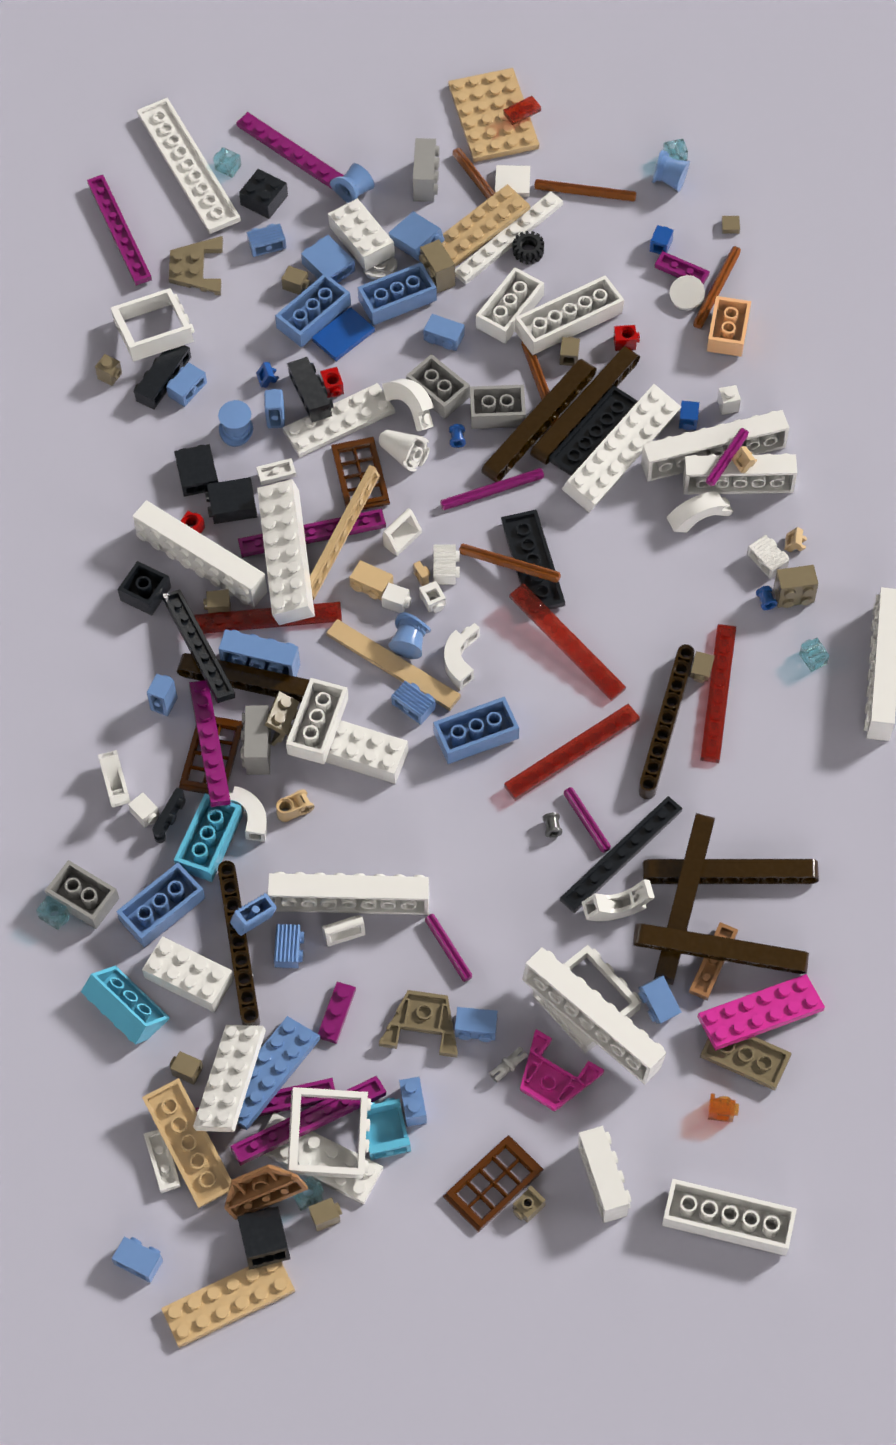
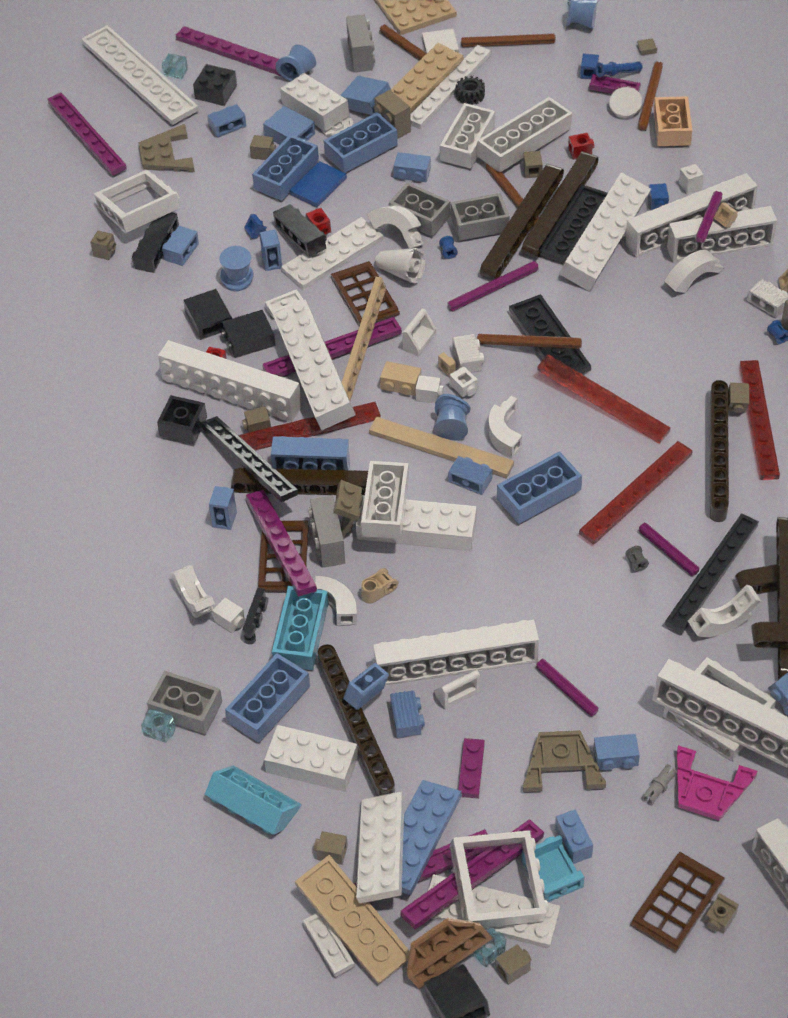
camera: 10 degrees left, 10 degrees down
(683, 249) = (614, 68): none -> blue pin

